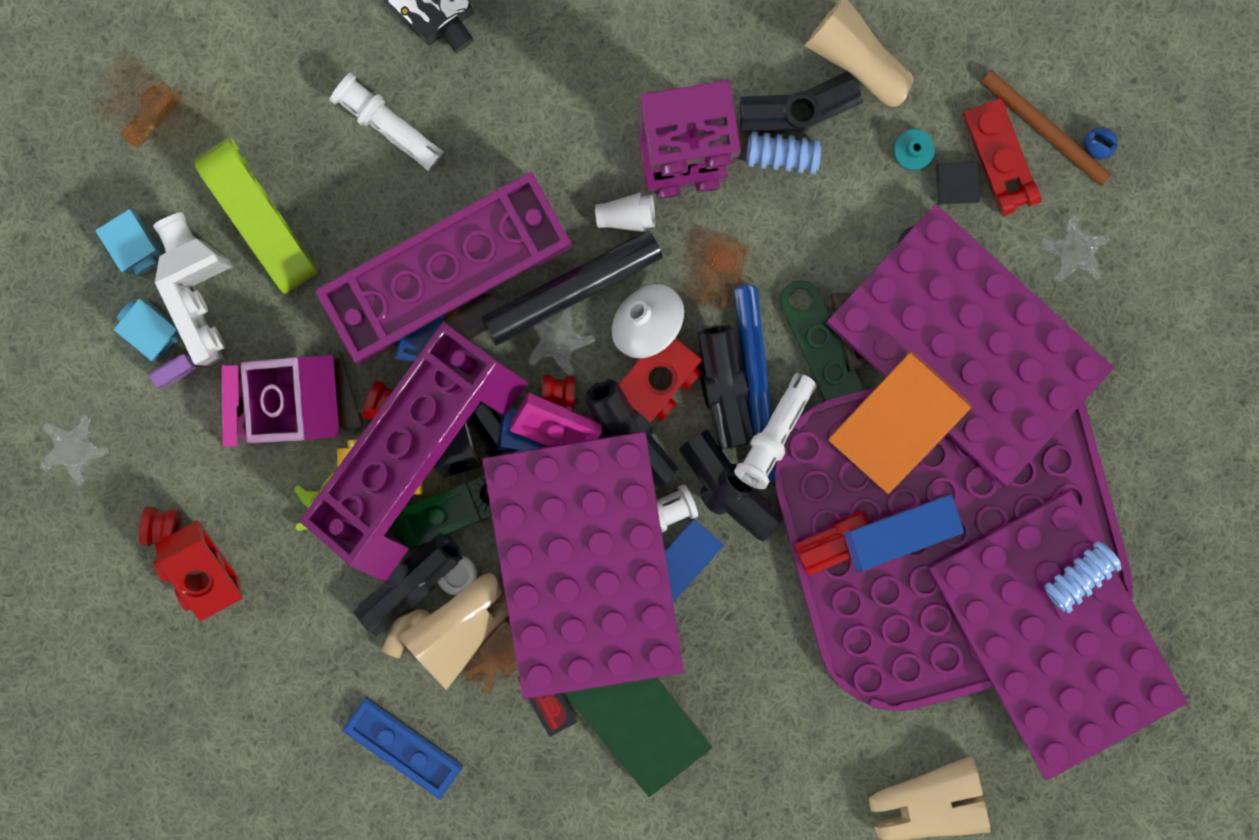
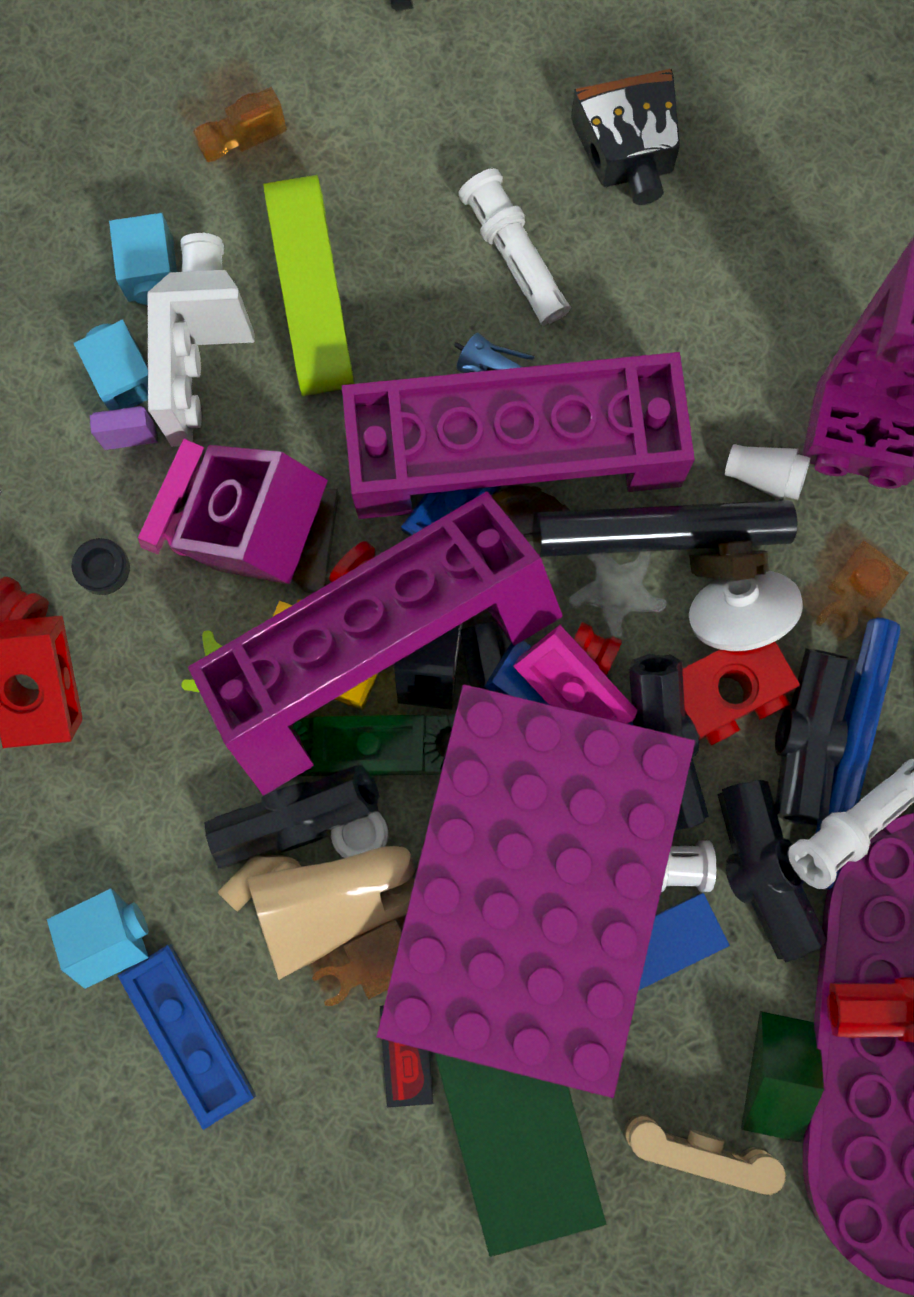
camera: 25 degrees right, 10 degrees down
(202, 471) = (100, 566): none -> black tile
(320, 712) = (98, 938): none -> medium azure brick
(405, 217) = (481, 354): none -> flat silver piece
(625, 294) = (733, 562): none -> dark brown plate
(757, 682) = (705, 1157): none -> tan plate
(788, 612) = (783, 1078): none -> dark green slope

